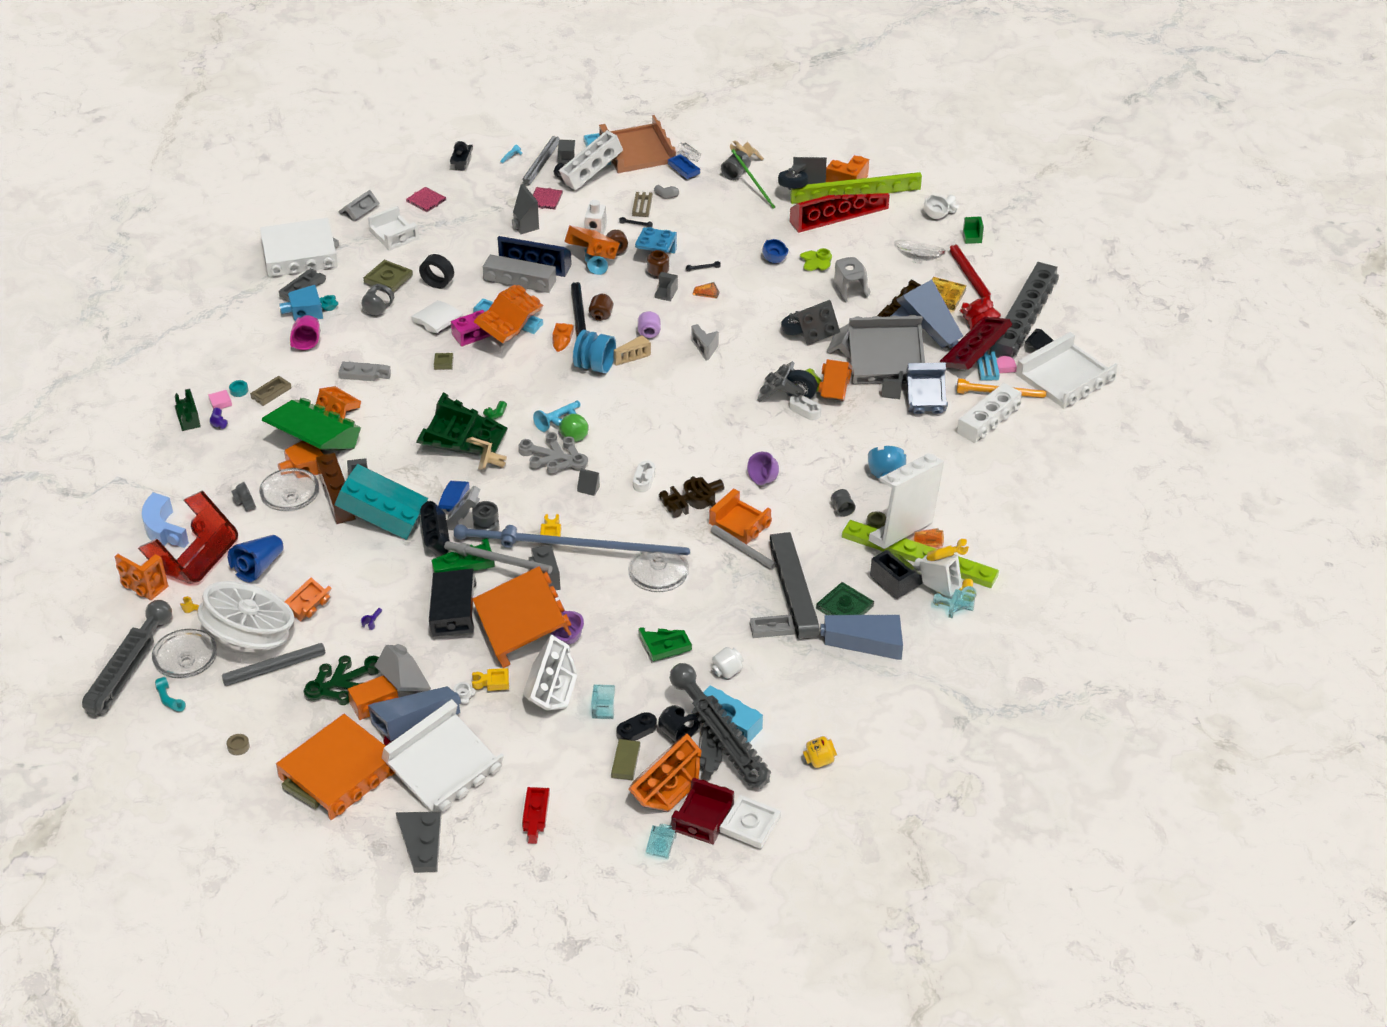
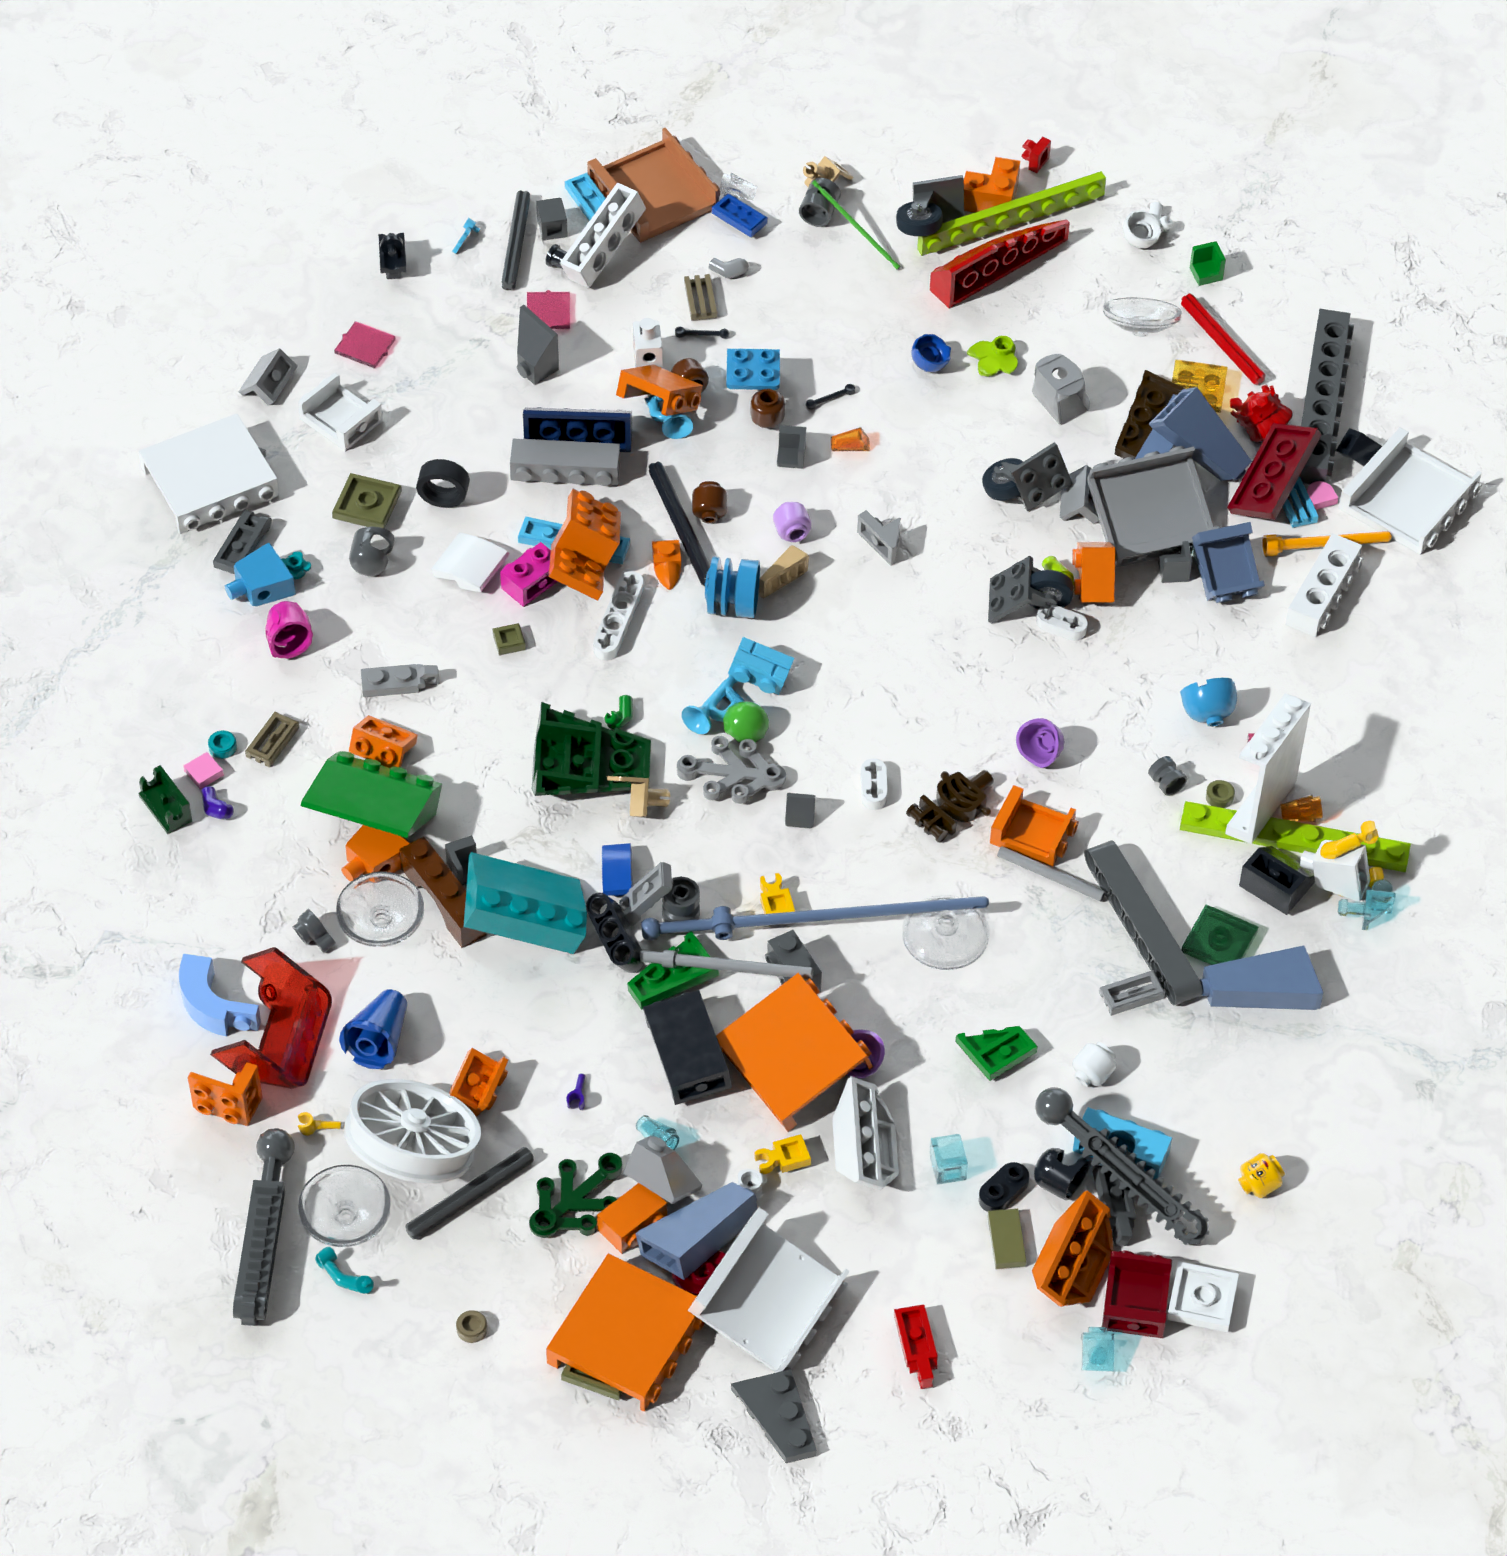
camera: 15 degrees left, 10 degrees up
(414, 650) = (651, 1127): none -> clear light blue cone
(505, 372) = (615, 614): none -> white beam
(595, 397) = (760, 666): none -> medium azure brick
(884, 160) = (1037, 153): none -> red tile

